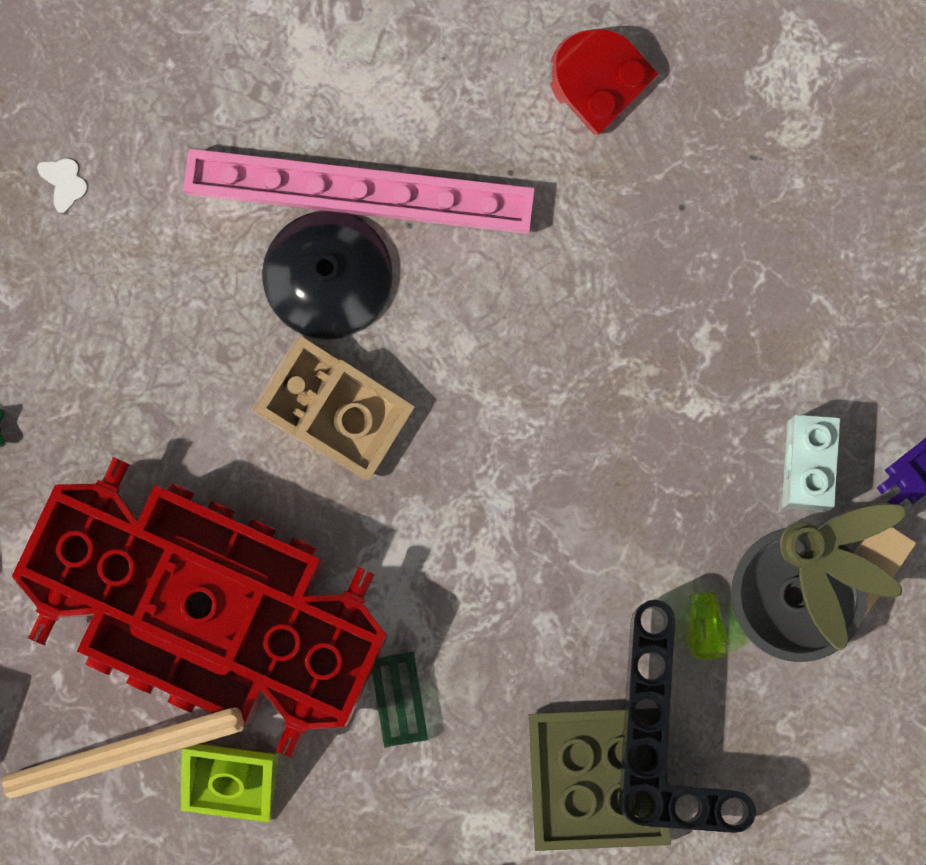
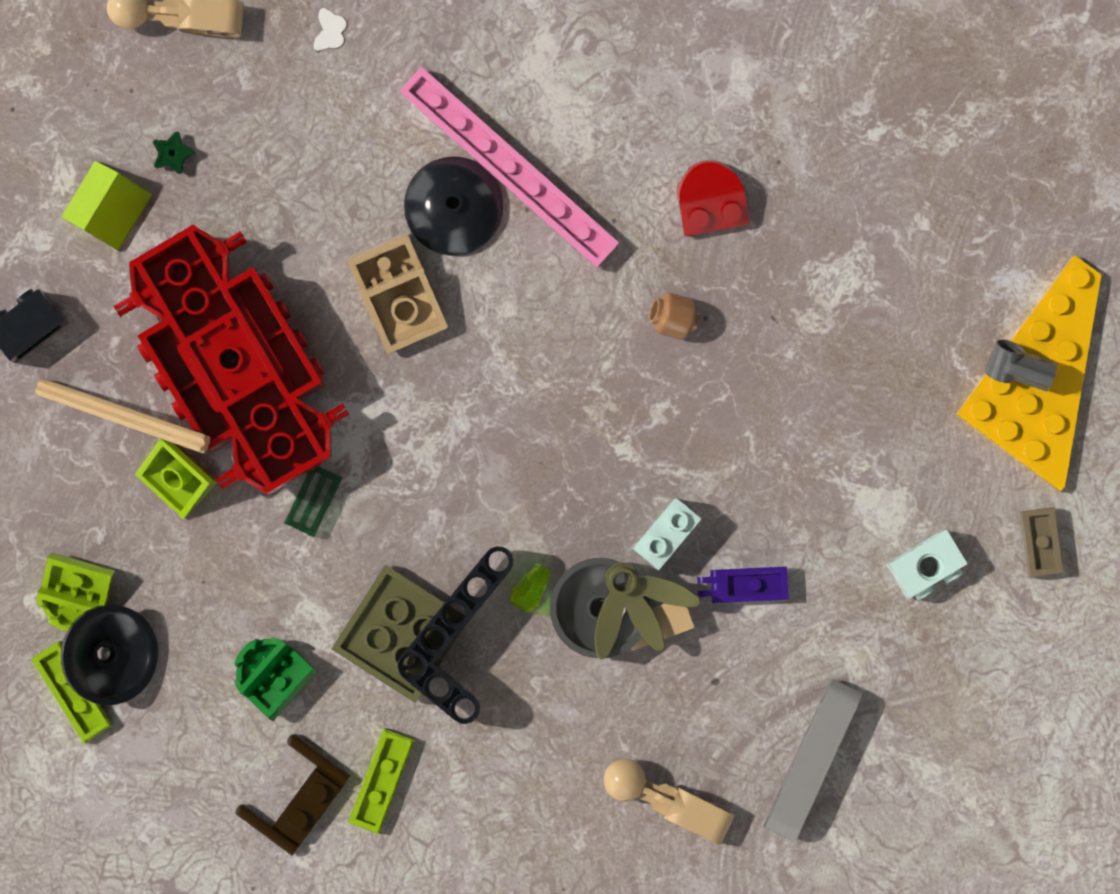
camera: 30 degrees right, 5 degrees up
(649, 224) = (674, 315): none -> medium nougat head

